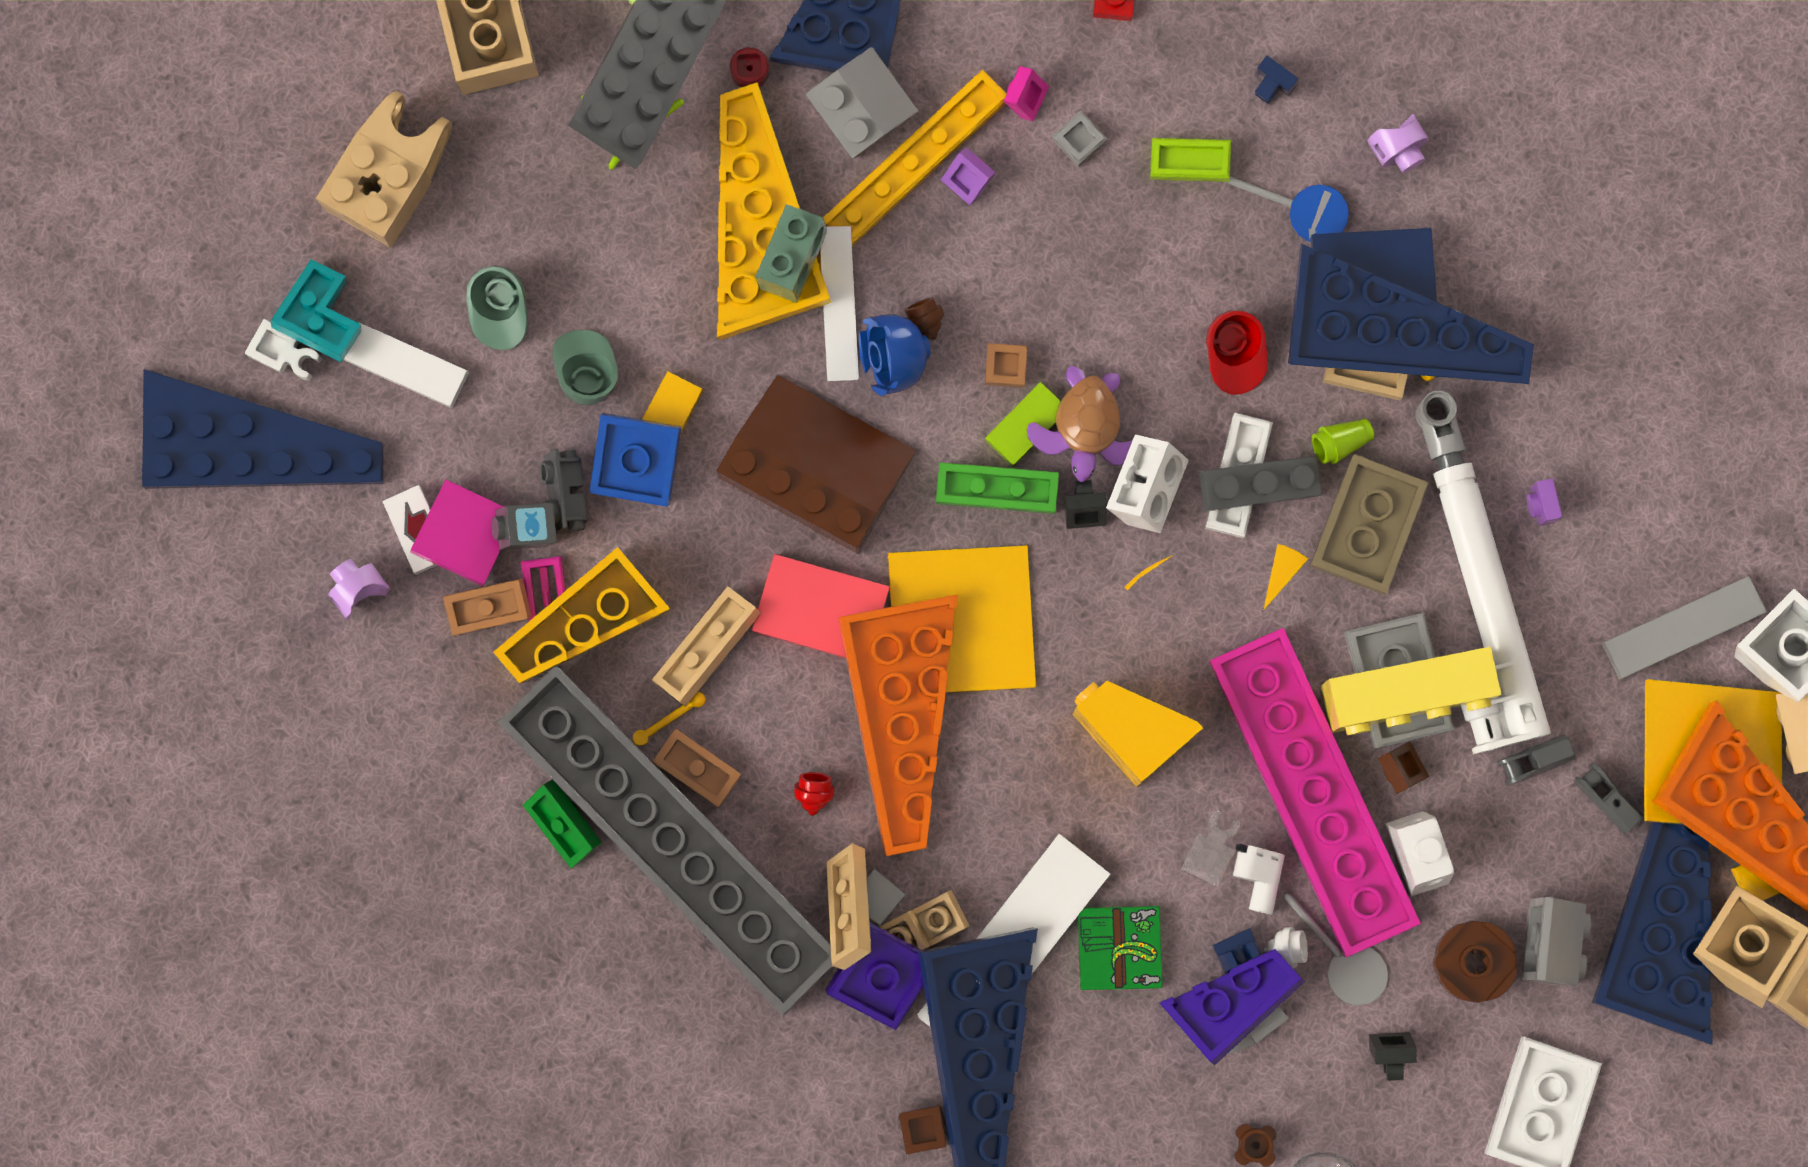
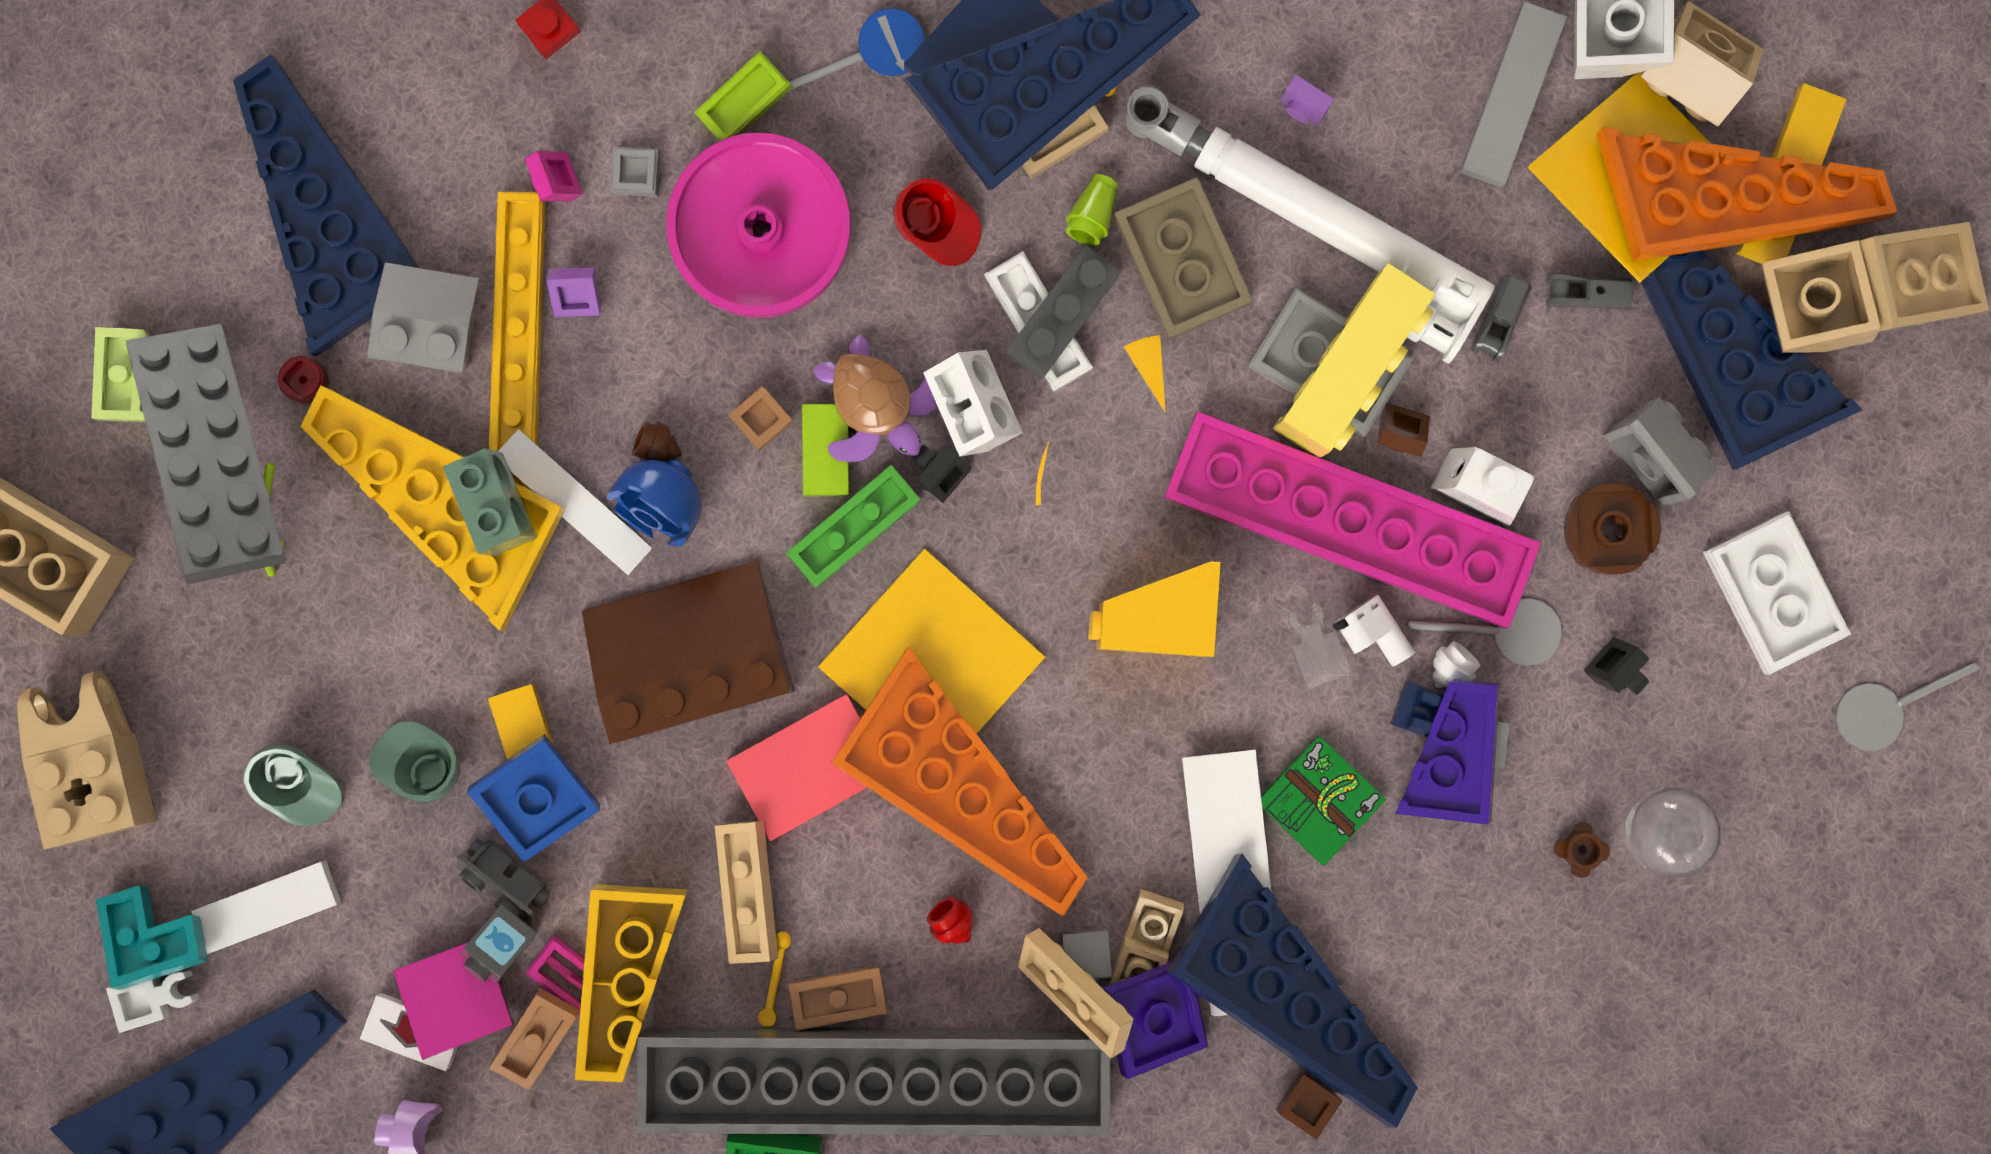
camera: 45 degrees left, 5 degrees up
(1130, 211) = (750, 184): none -> dark pink dish

